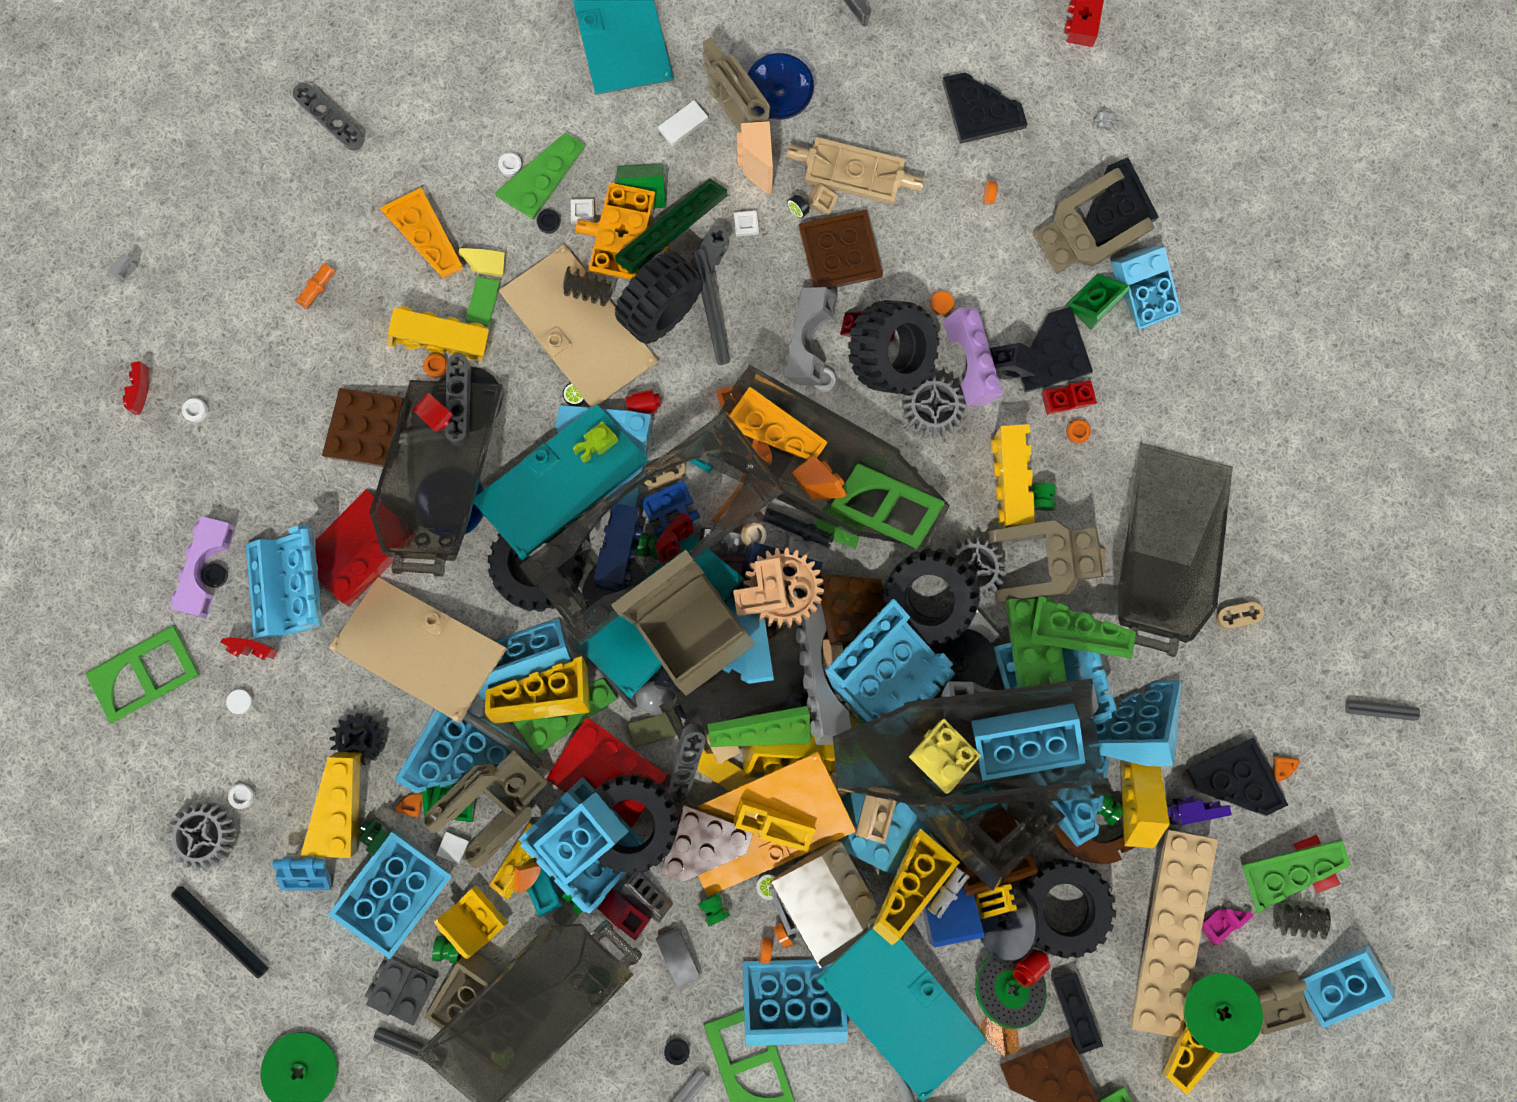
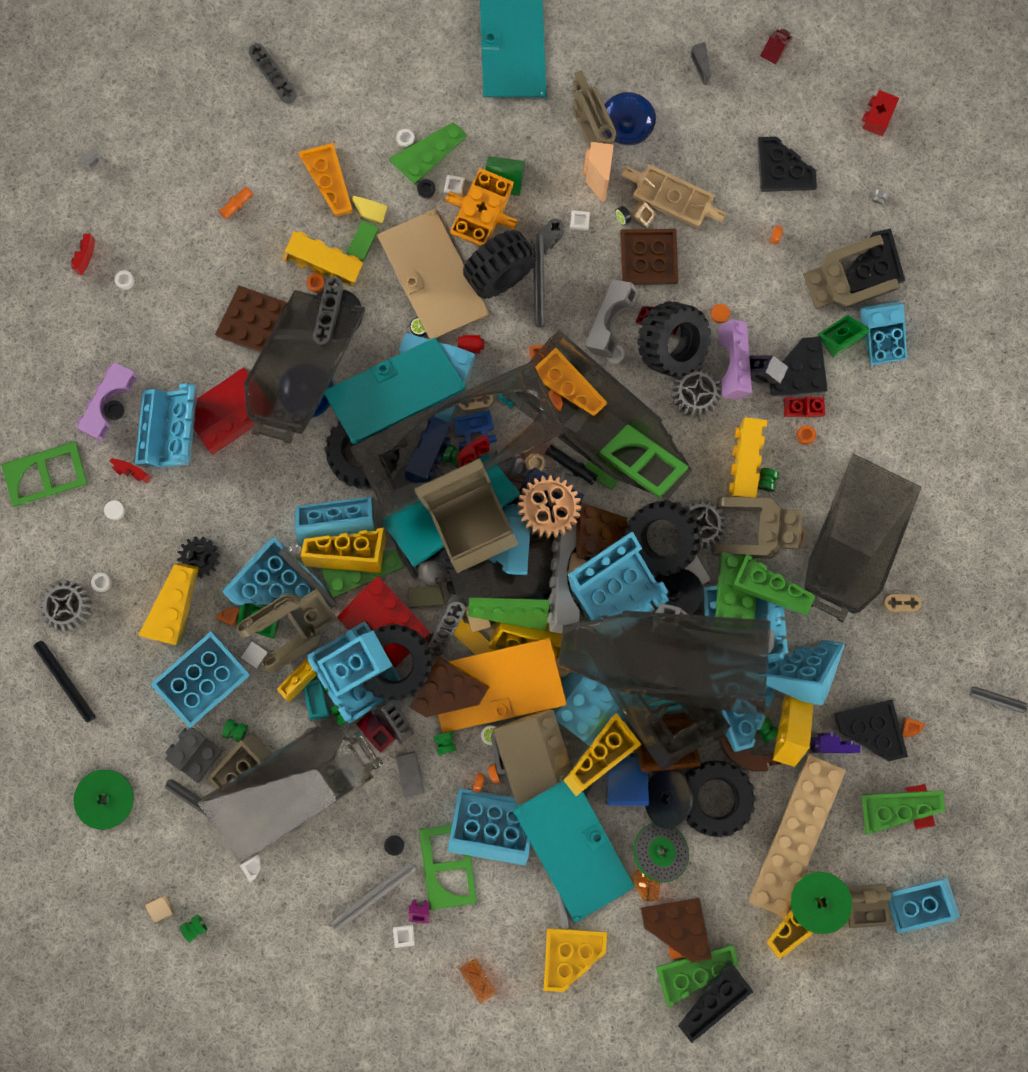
camera: 10 degrees right, 0 degrees up
(302, 874) = (141, 654): dark azure plate -> none
(373, 834) = (196, 631): dark green slope -> none
(418, 649) = (259, 497): tan door -> none
(433, 412) = (307, 318): red slope -> none
(471, 922) = (257, 713): yellow bracket -> none
(526, 876) = (306, 687): orange tile -> none
(587, 287) = (446, 246): clear smoke piece -> none
(598, 440) = (428, 365): lime plate -> none
(670, 226) = (520, 210): dark green plate -> none
(683, 123) = (546, 132): white tile -> none
(769, 593) = (537, 508): light nougat plate -> none
(773, 825) = (504, 687): yellow slope -> none
(818, 481) = (594, 430): orange slope -> none
(875, 819) = (584, 697): tan slope -> none
(944, 756) = (645, 657): light yellow plate -> none
(948, 892) = (627, 765): light grey pin -> none
(1006, 899) = (671, 780): yellow tile -> none
(1028, 741) = (713, 661): medium azure slope -> none
(1031, 968) = (680, 838): red brick -> none
(1077, 1012) = (709, 881): black plate -> none
(1222, 923) = (837, 836): dark pink slope -> none
(1302, 919) = (899, 846): clear smoke piece -> none

